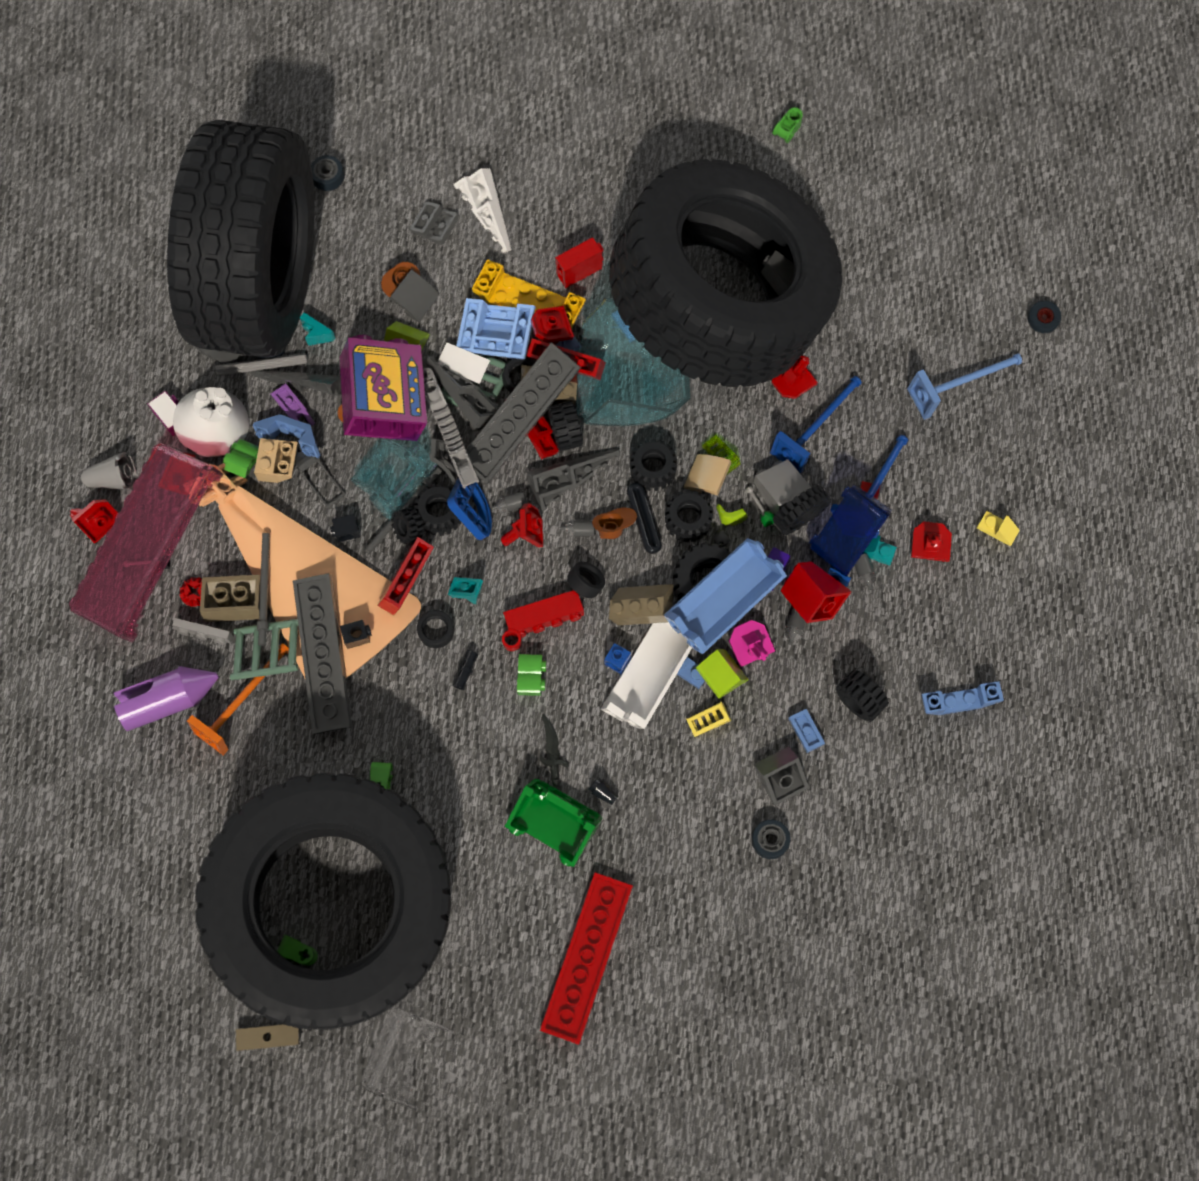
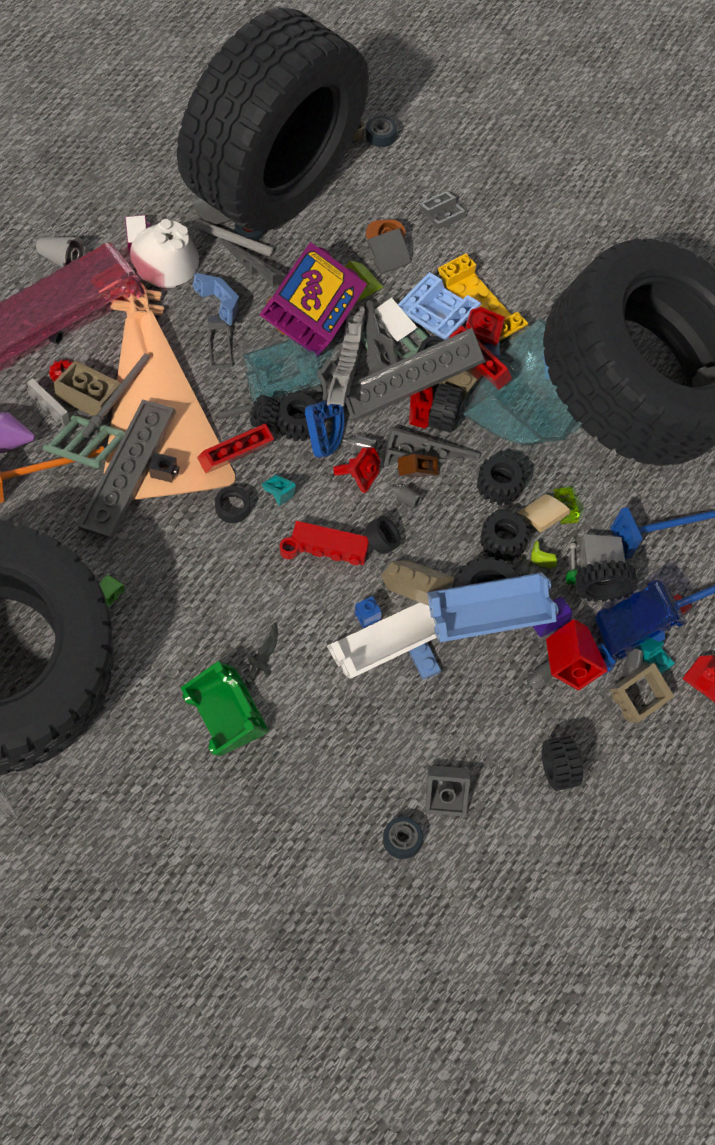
camera: 25 degrees right, 10 degrees down
(95, 519) = (24, 273): red piece -> none
(241, 458) = (169, 293): bright green brick -> none
(275, 460) = (193, 309): tan slope -> none
(291, 404) = (235, 277): medium lavender hinge -> none
(318, 332) = (293, 237): teal slope -> none
(345, 528) = (214, 389): black brick -> none
(465, 670) = (235, 549): black pin -> none
(482, 195) = (495, 208): white wedge -> none
(530, 674) = (286, 583): bright green brick -> none
(574, 495) = (418, 466): none -> reddish brown slope
(579, 262) = (539, 293): red brick -> none
(586, 958) = (175, 839): red plate -> none
(603, 791) = (283, 710): black cone -> none
(614, 522) = (436, 506): dark orange piece -> none
(645, 520) = (465, 517): black piece -> none
(720, 706) = (423, 701): light yellow slope -> none
(721, 673) = (450, 675): lime slope -> none
(750, 642) = (492, 665): dark pink piece -> none
(795, 380) = (669, 479): red piece -> none
(806, 731) = (494, 767): medium blue plate -> none
(896, 576) = (657, 685): none -> dark tan window
(965, 700) = (677, 832): medium blue slope -> none

